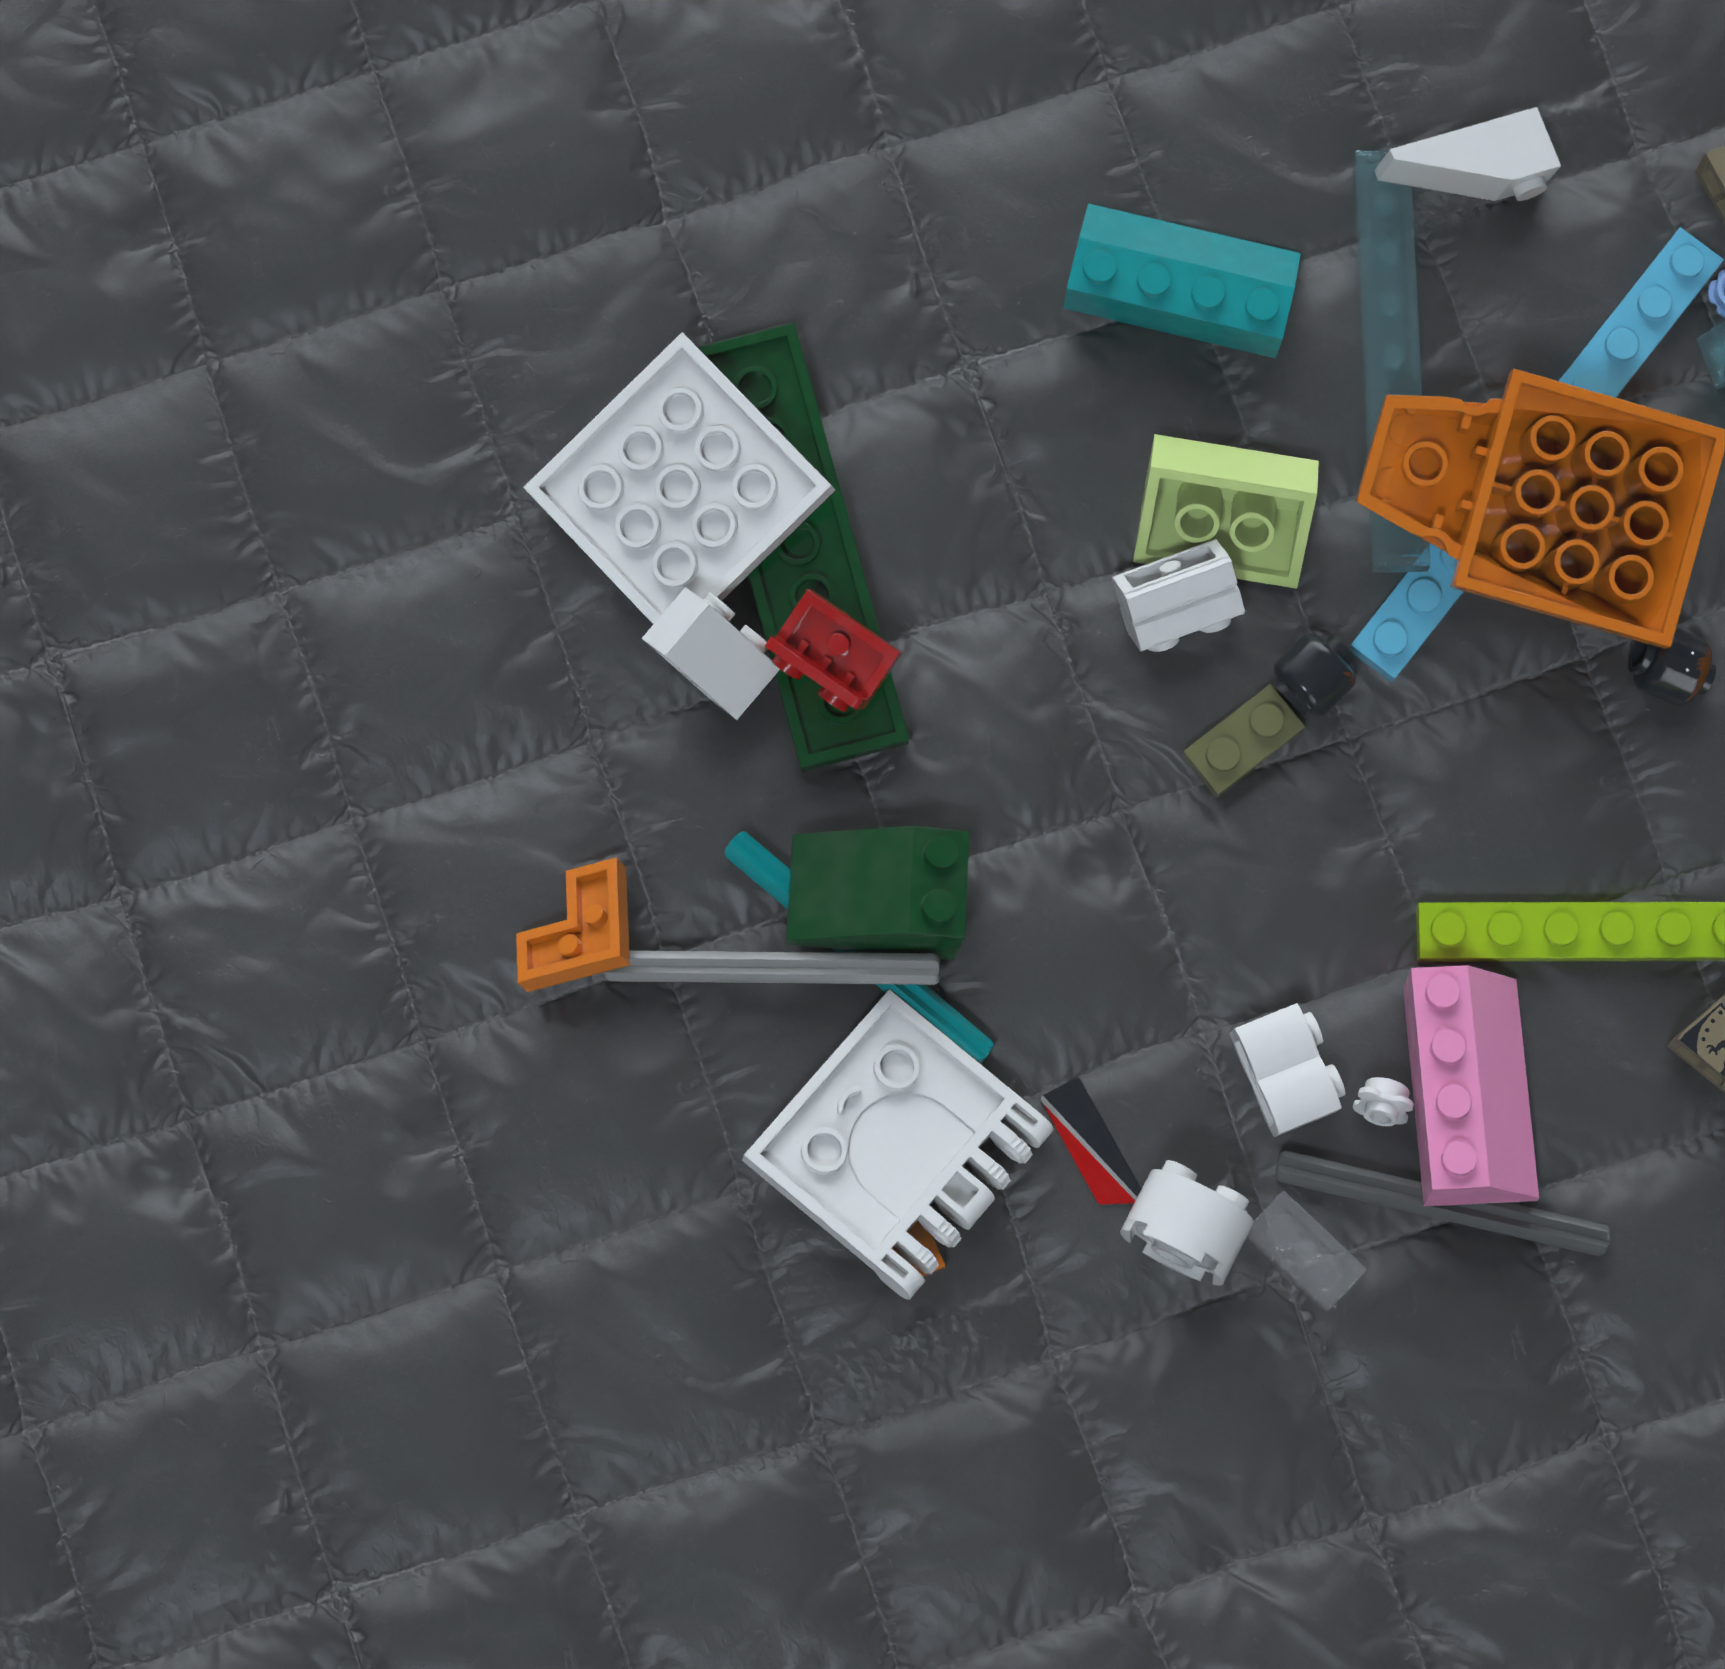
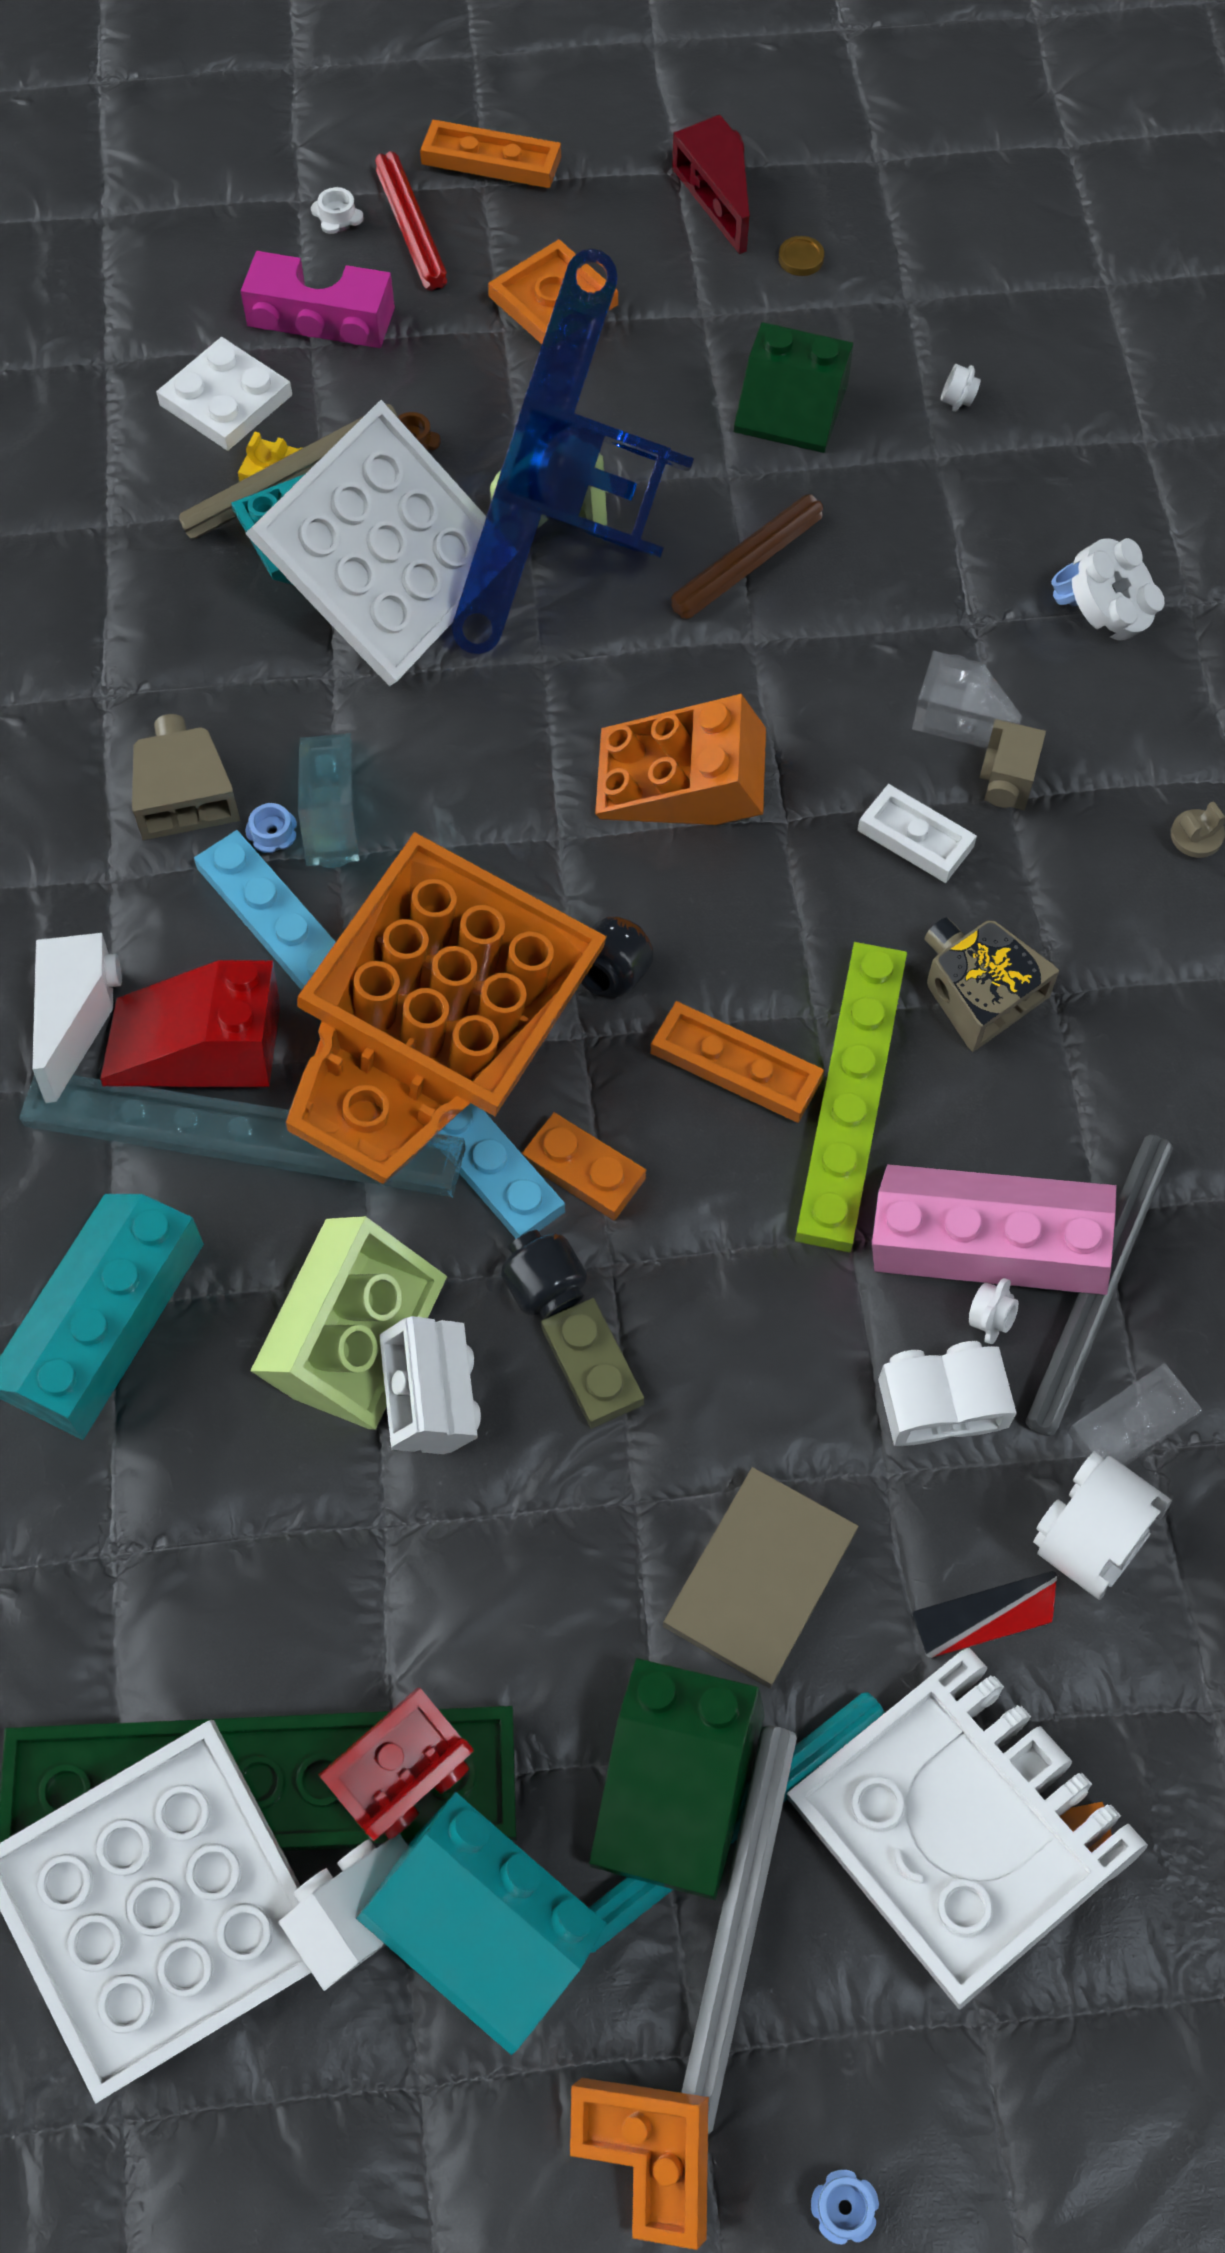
camera: 75 degrees left, 15 degrees down
(574, 1083) = (825, 2206): none -> light blue plate
(722, 751) = (482, 1922): none -> teal slope
(1078, 934) = (760, 1577): none -> dark tan tile
(1441, 689) = (584, 1166): none -> orange plate
(1485, 286) = (197, 1029): none -> red slope
(1588, 810) = (737, 1061): none -> orange plate

